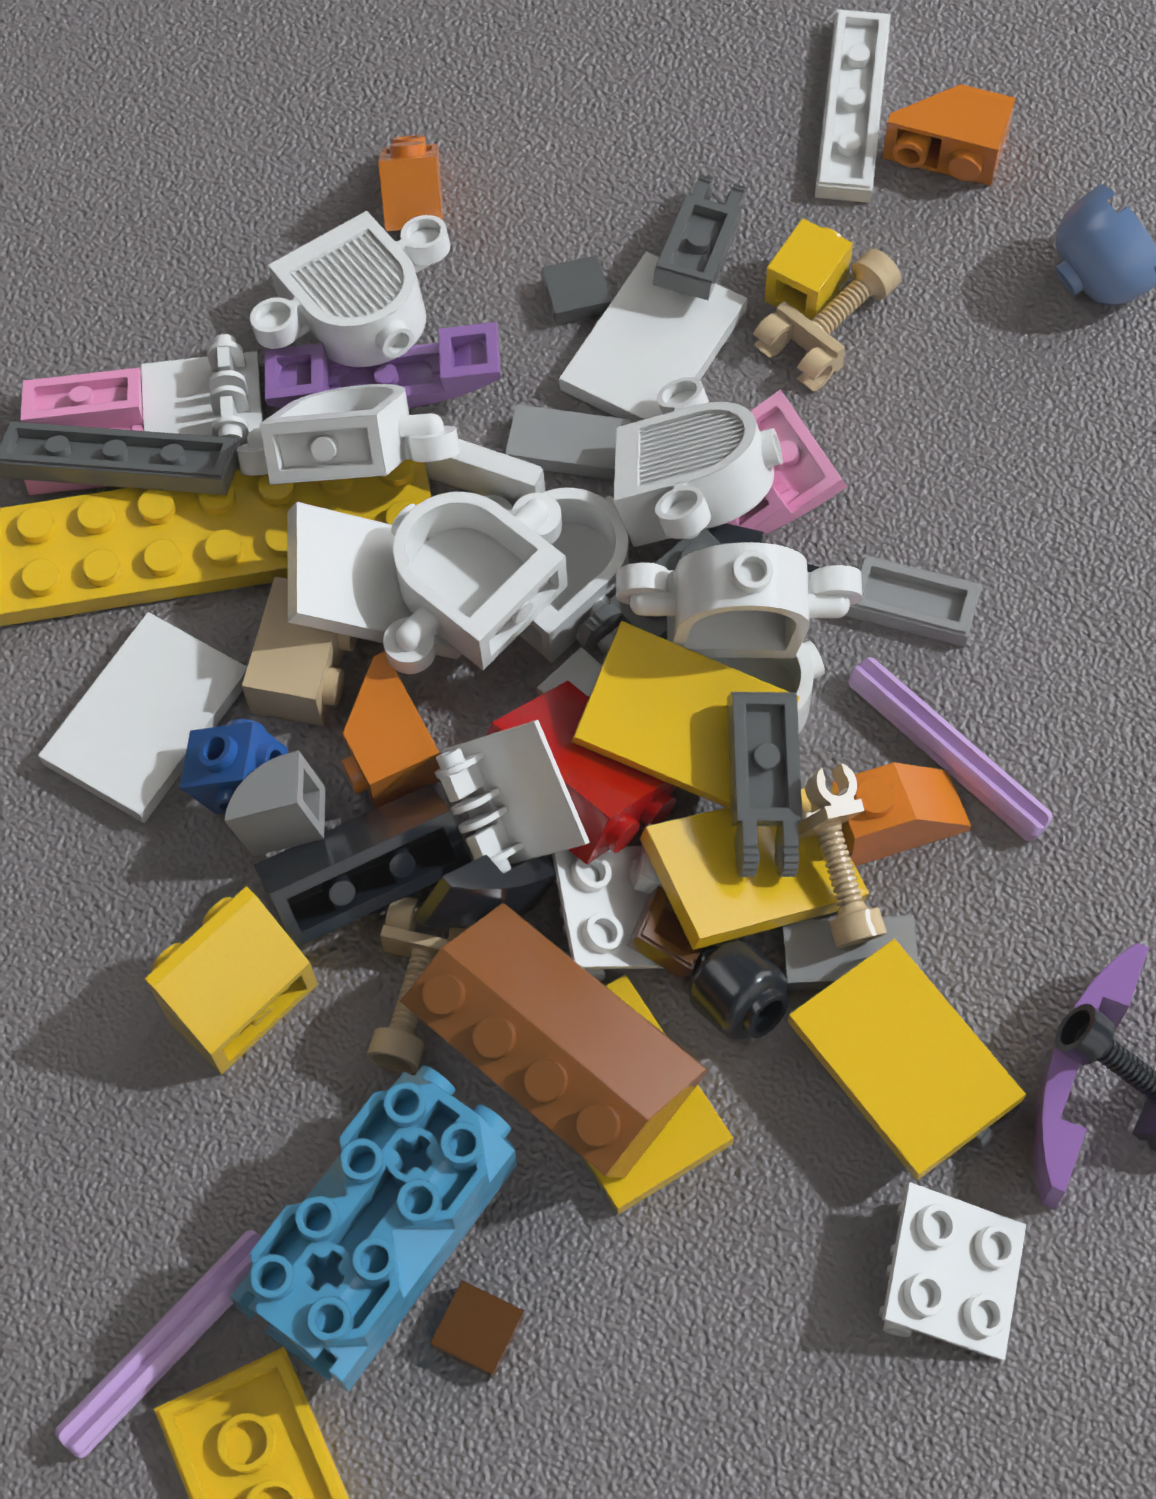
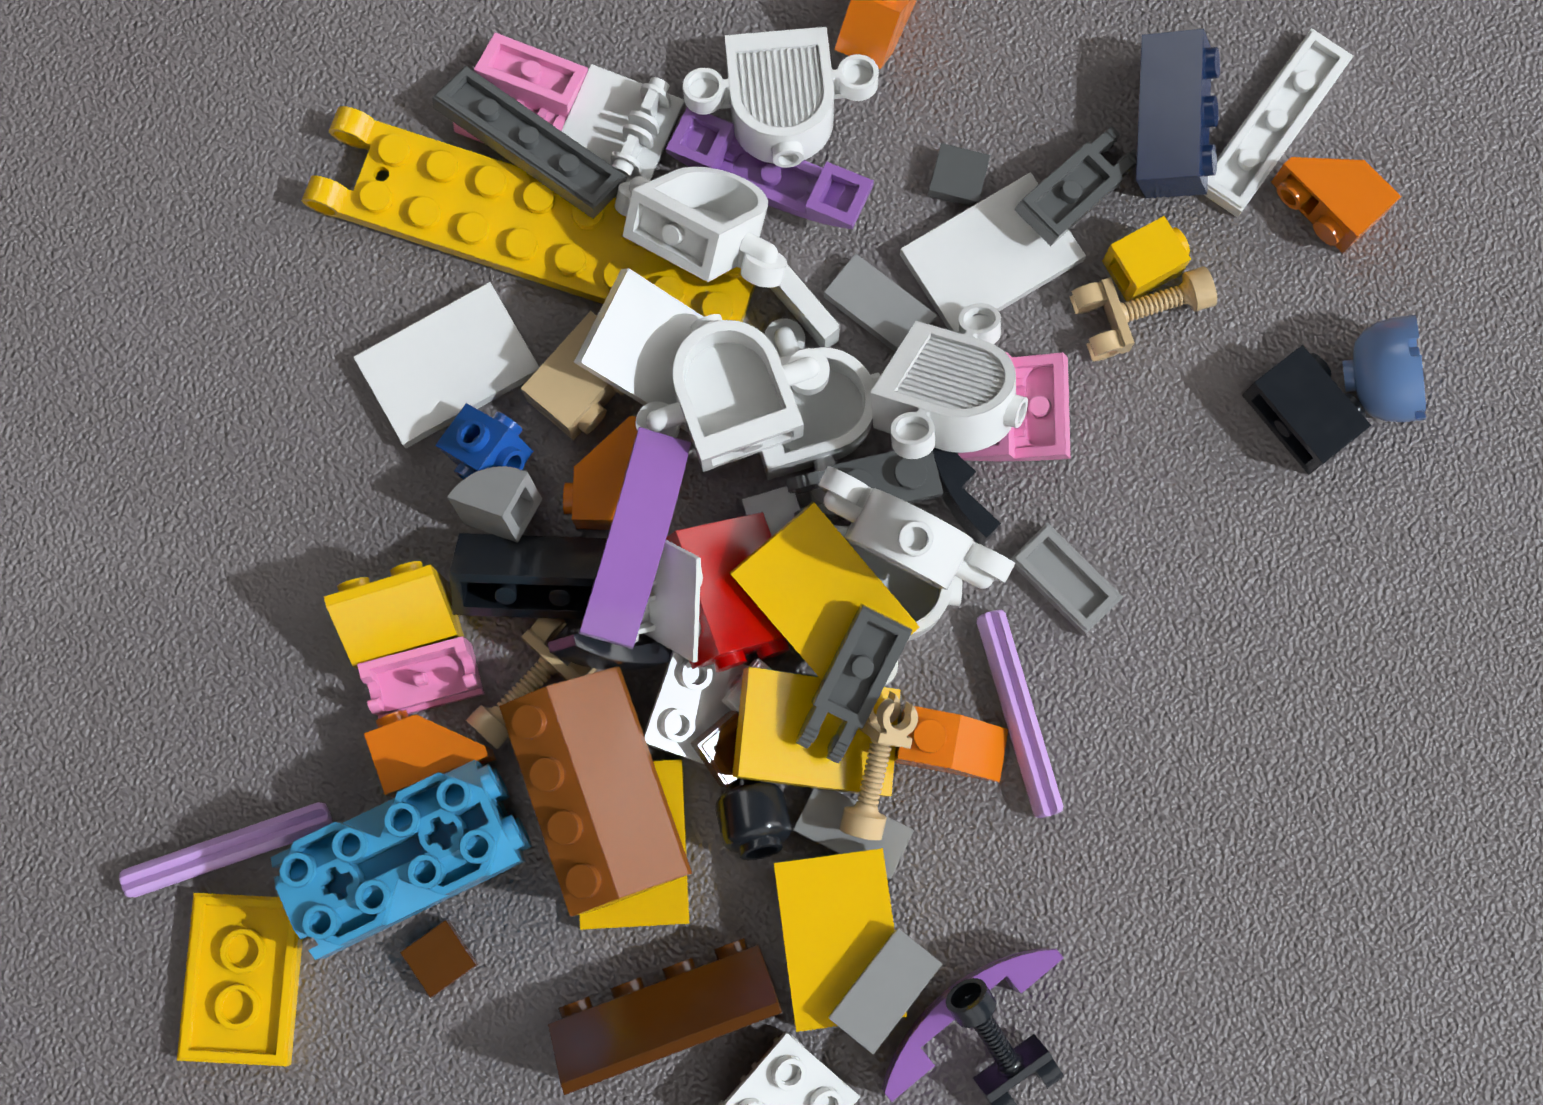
camera: 25 degrees right, 15 degrees up
(292, 1038) = (422, 678): none -> bright pink hinge
(321, 1104) = (414, 748): none -> orange slope
(457, 754) = (636, 538): none -> medium lavender slope
(758, 132) = (1176, 114): none -> dark blue brick
(767, 1241) = (662, 1017): none -> reddish brown slope
(987, 1075) = (885, 990): none -> light grey tile
(1048, 327) = (1307, 408): none -> black brick

